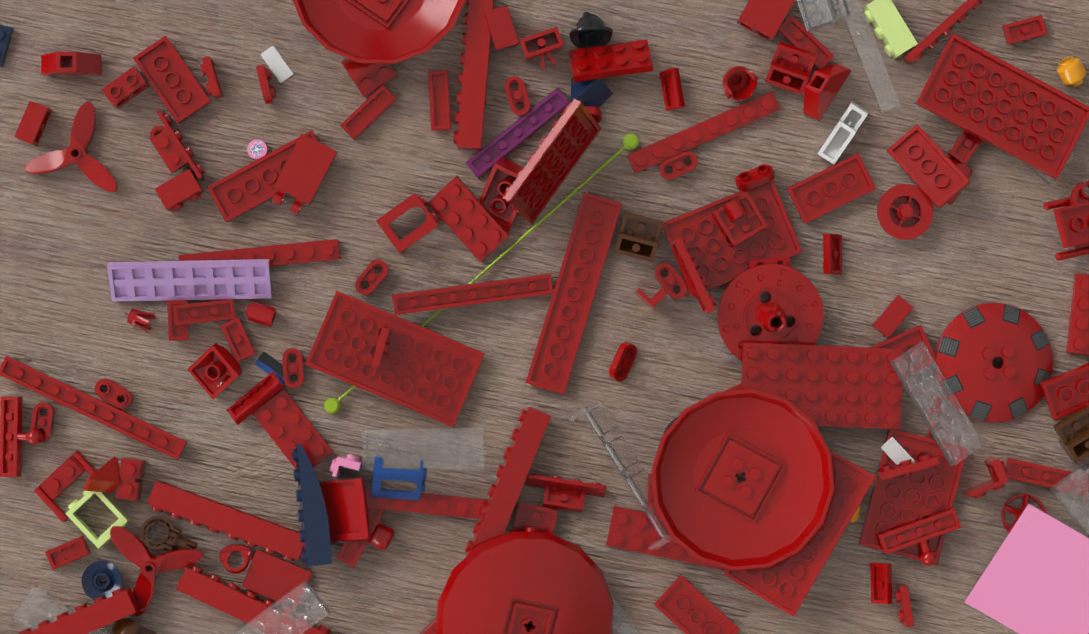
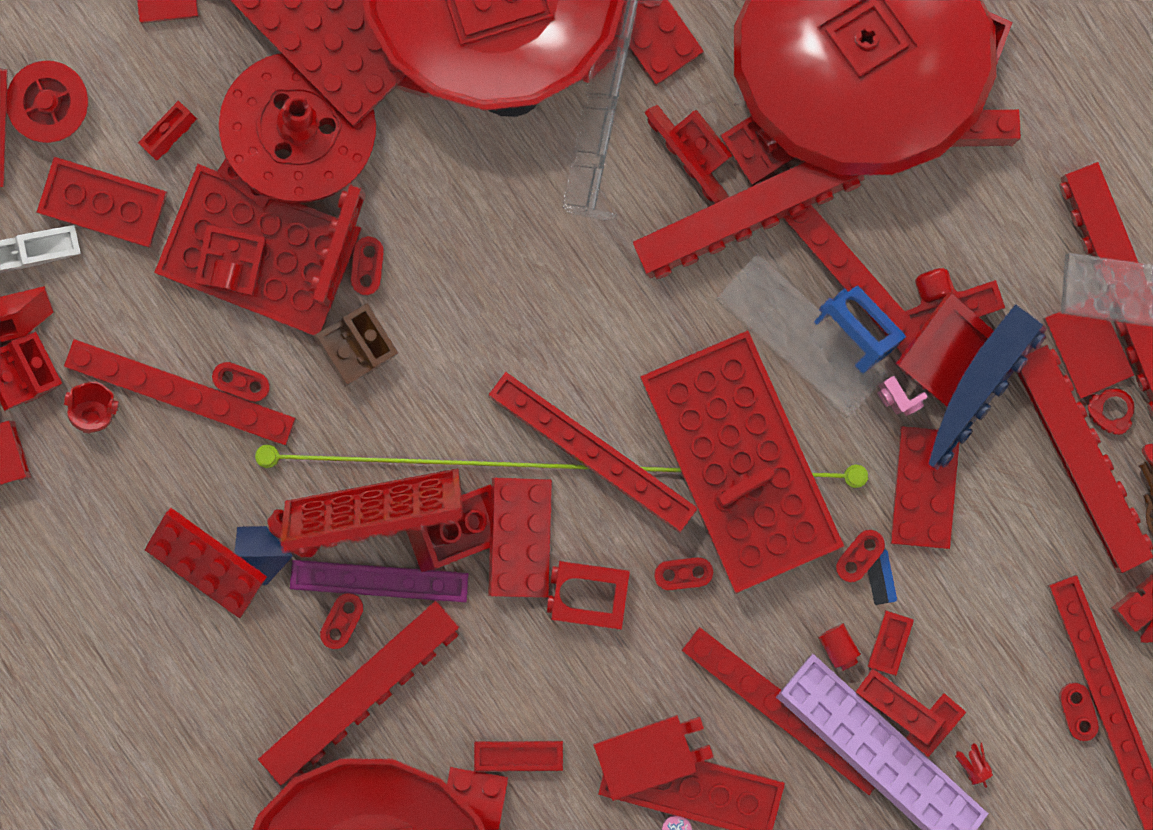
camera: 130 degrees left, 0 degrees up
(215, 370) = (945, 632): red slope -> none
(255, 398) = (931, 561): red plate -> none
(439, 100) = (430, 696): red plate -> none
(501, 28) = (288, 710): red panel -> none
(542, 44) = (263, 650): red brick -> none
(573, 293) = (483, 351): red plate -> none
(590, 32) = (197, 615): black helmet -> none
(623, 361) = (500, 228): red plate -> none
(654, 300) = (404, 260): red panel -> none
(672, 89) = (169, 469): red plate -> none
(754, 177) = (171, 290): red plate -> none

